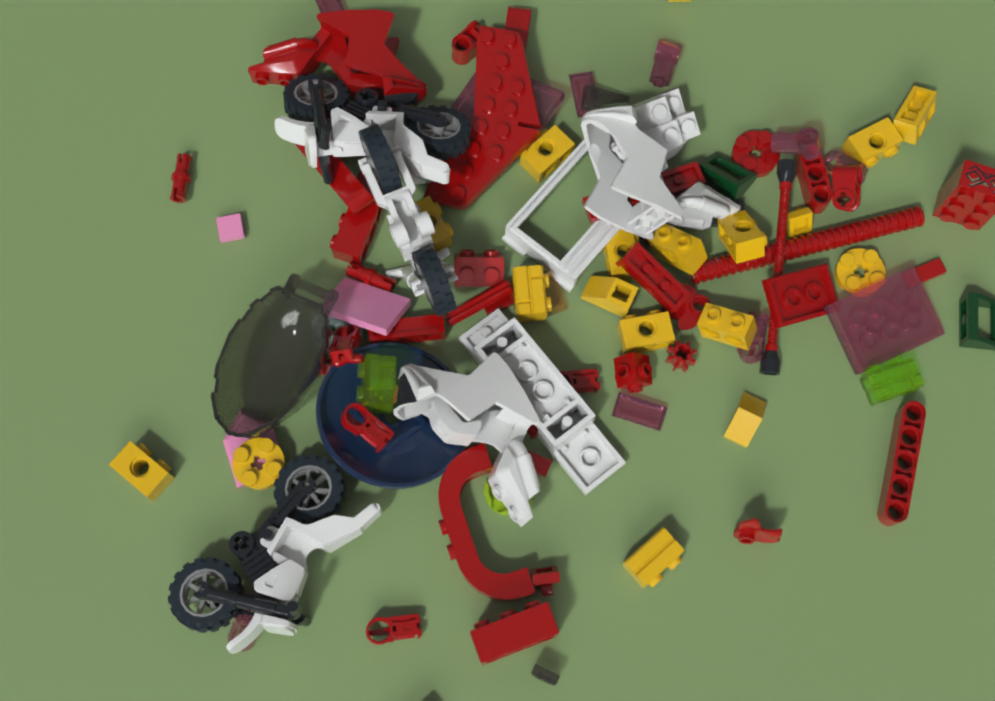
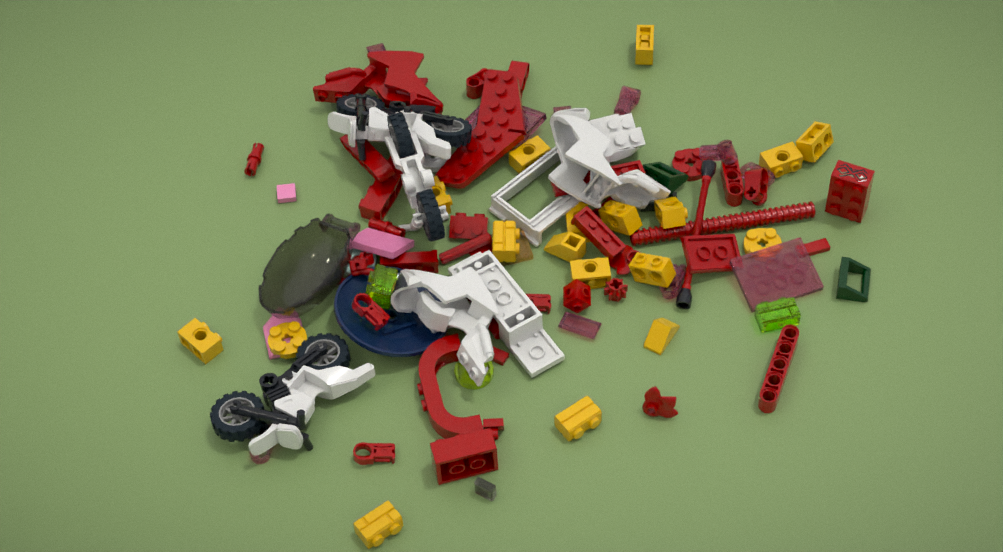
camera: 10 degrees right, 20 degrees down
(799, 222) = (717, 207): yellow tile -> none

